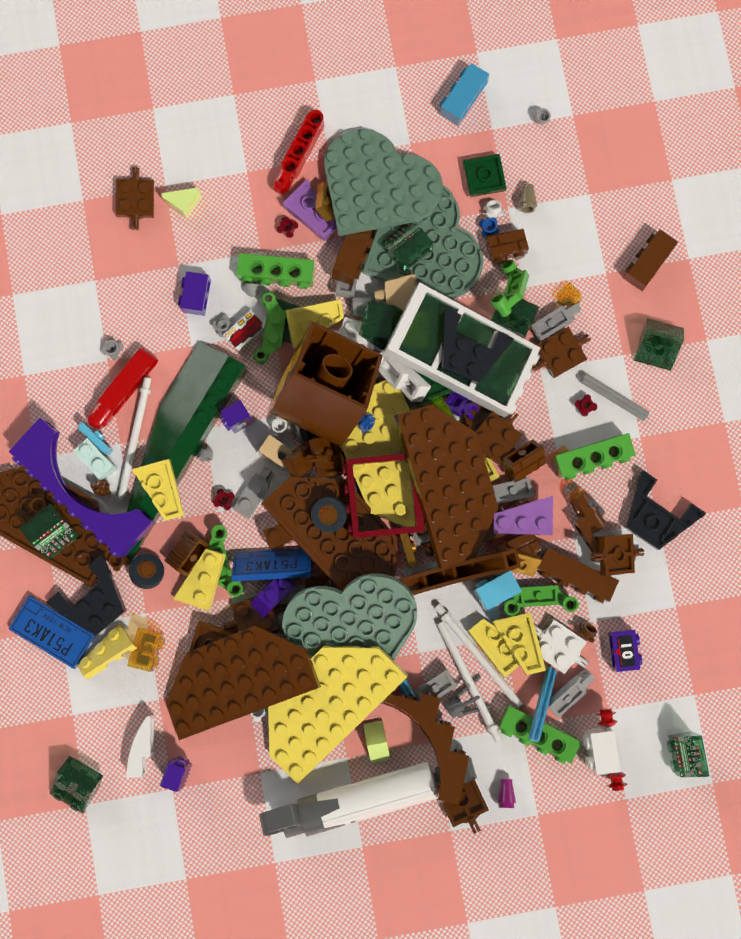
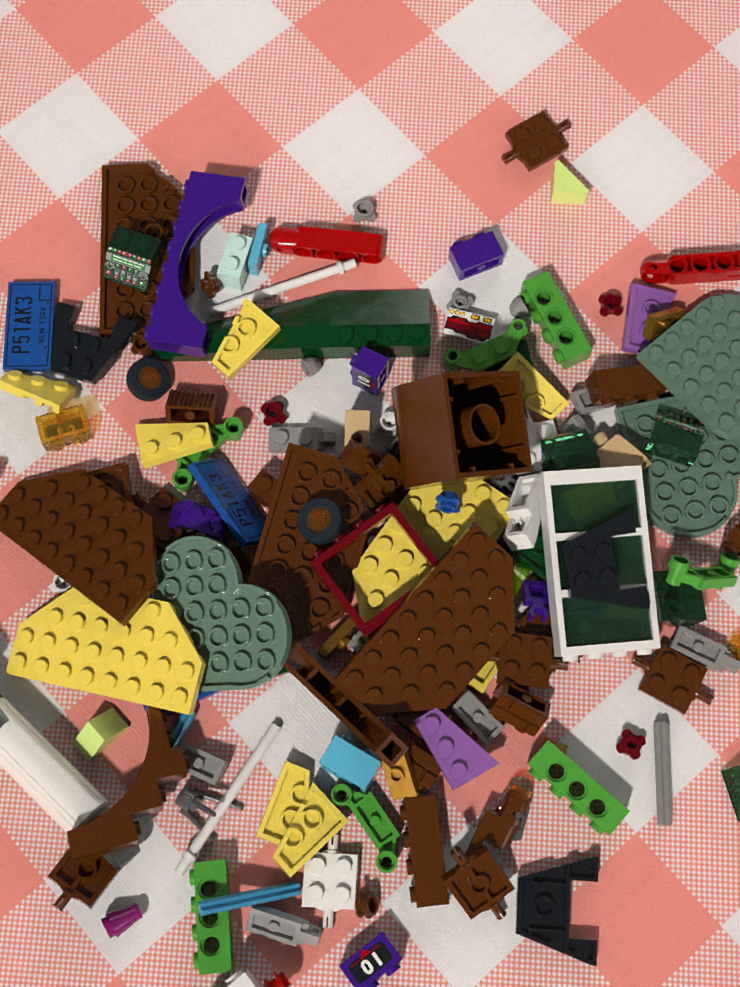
camera: 55 degrees right, 10 degrees down
(445, 616) = (287, 729): white bar -> none

